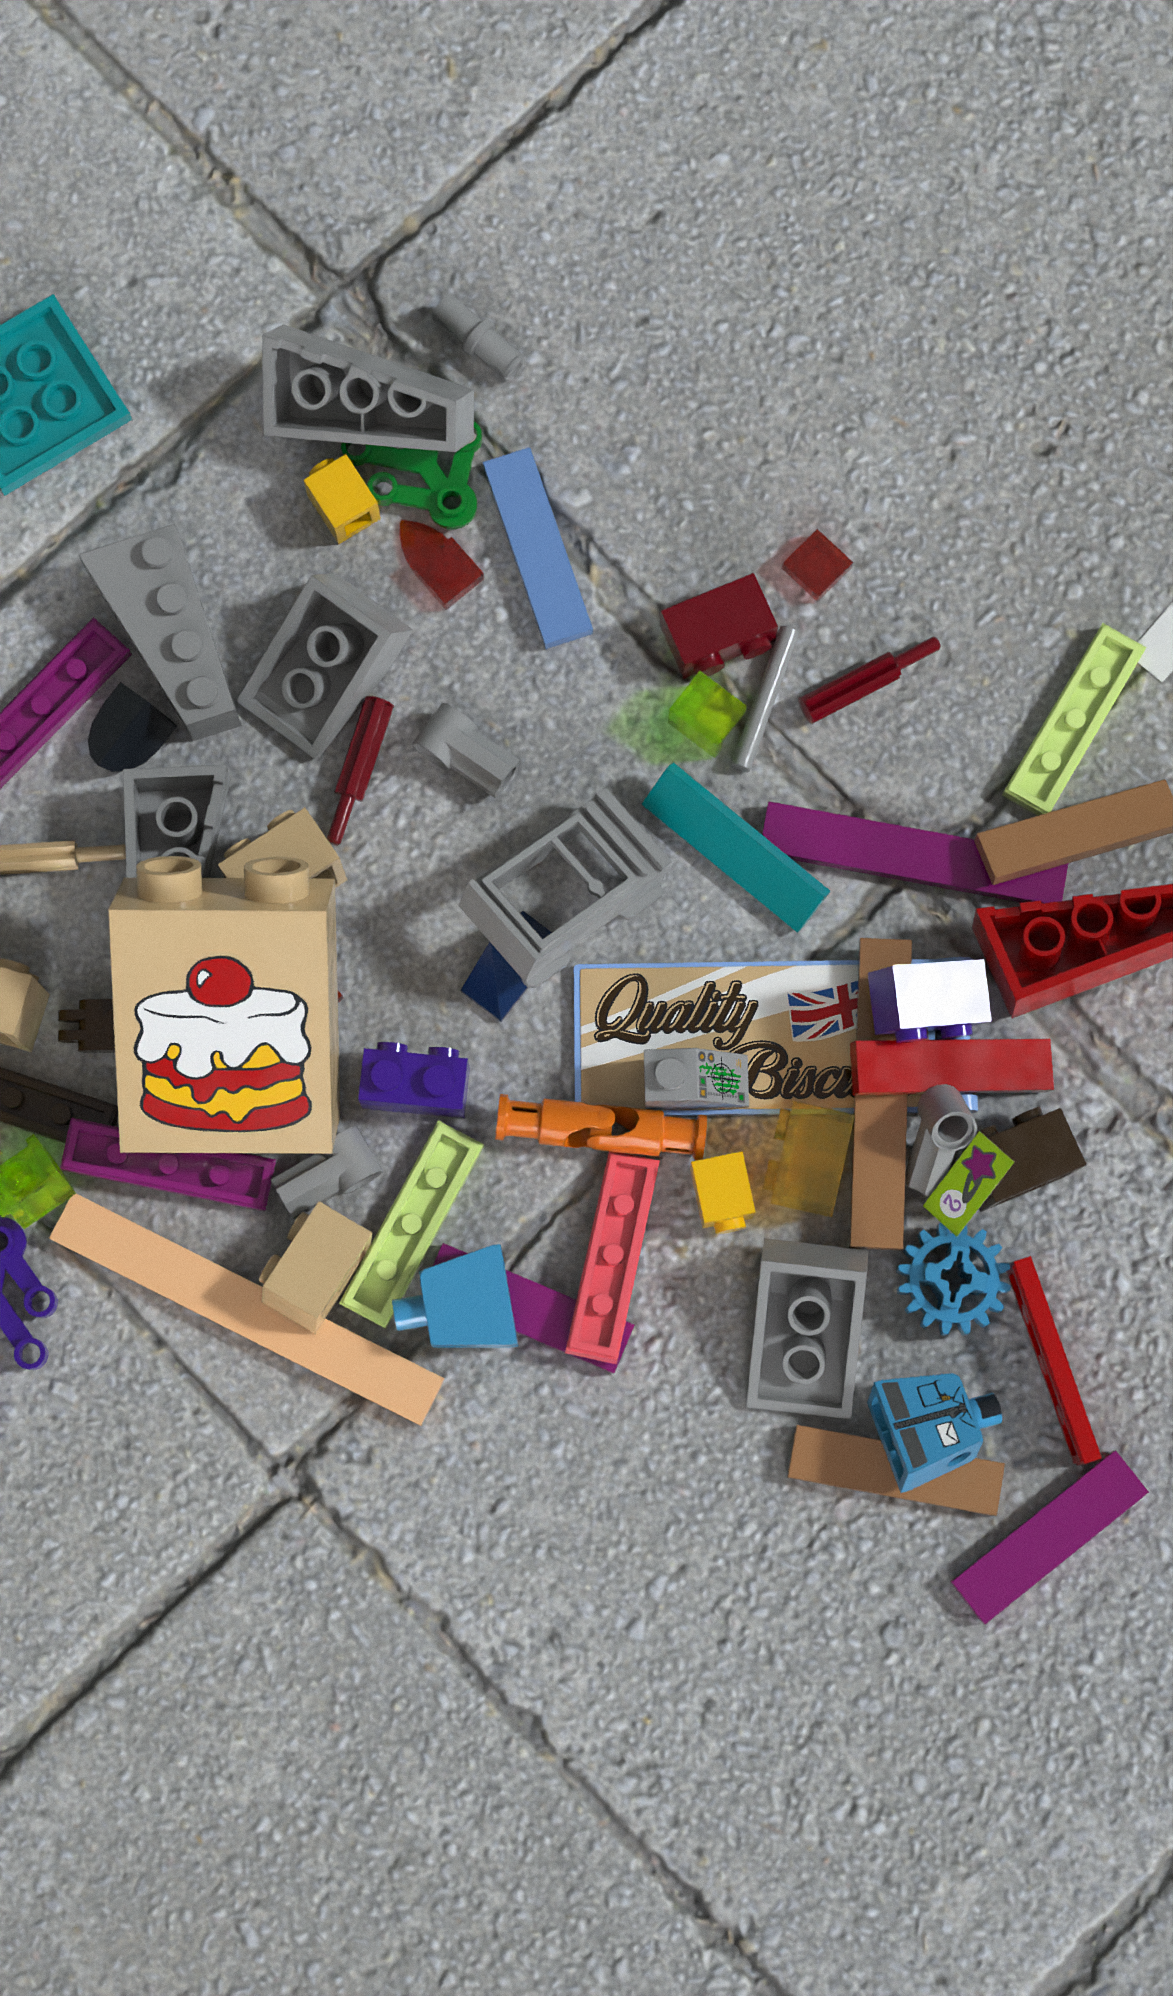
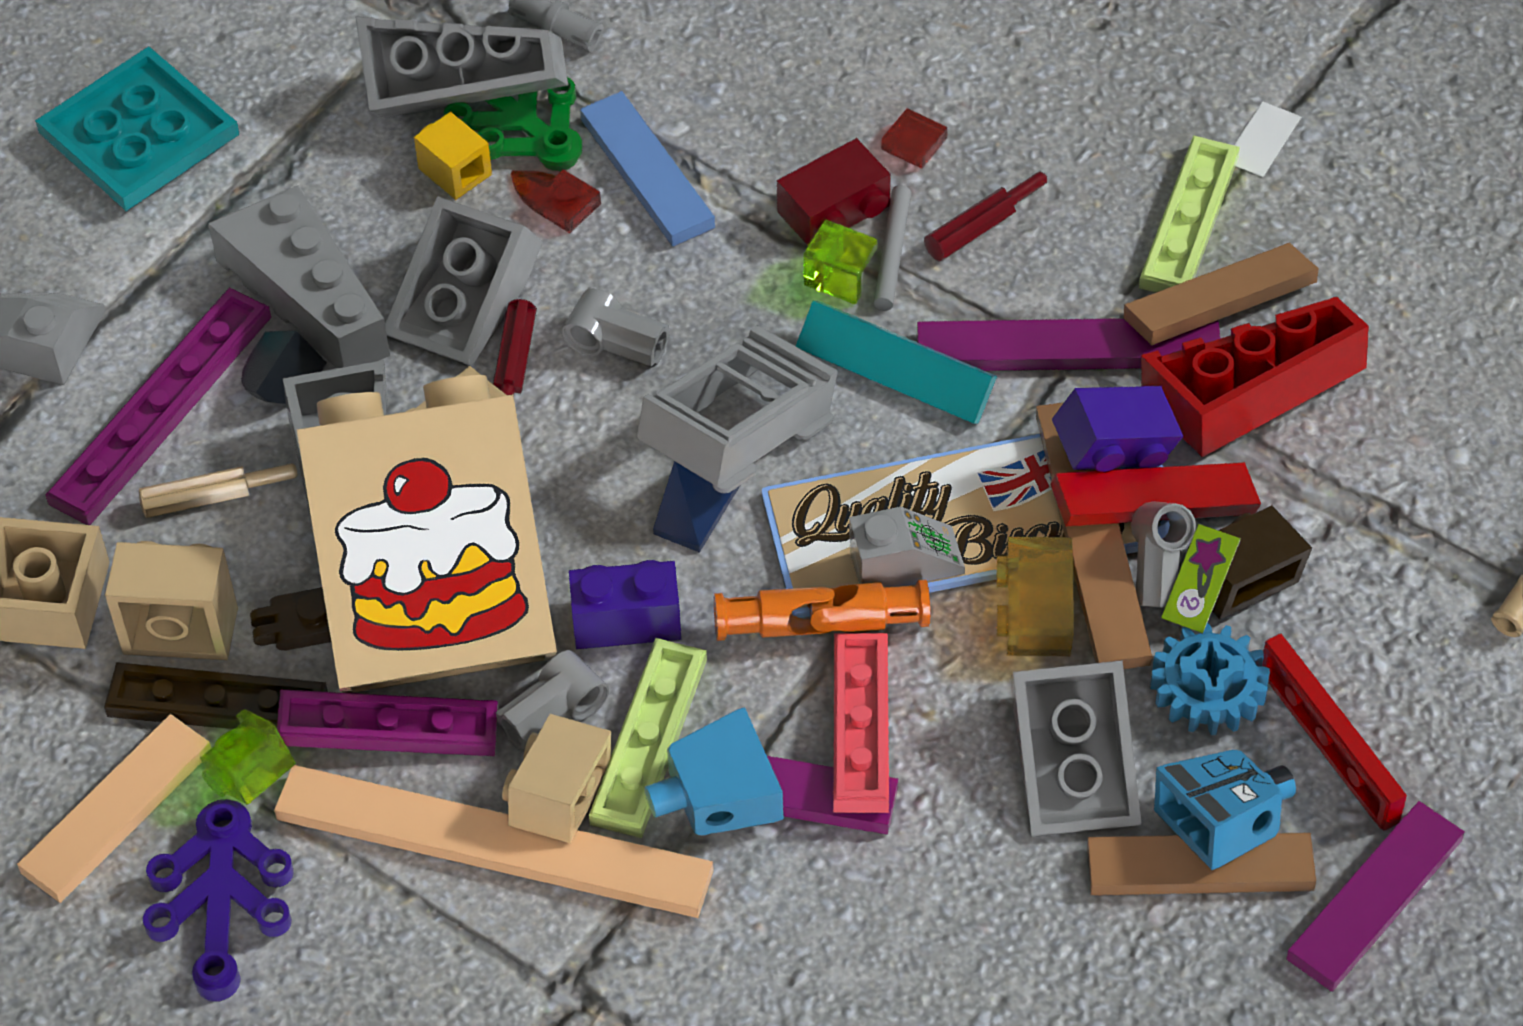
camera: 10 degrees left, 25 degrees down
(723, 1192) = (957, 644): yellow brick -> none

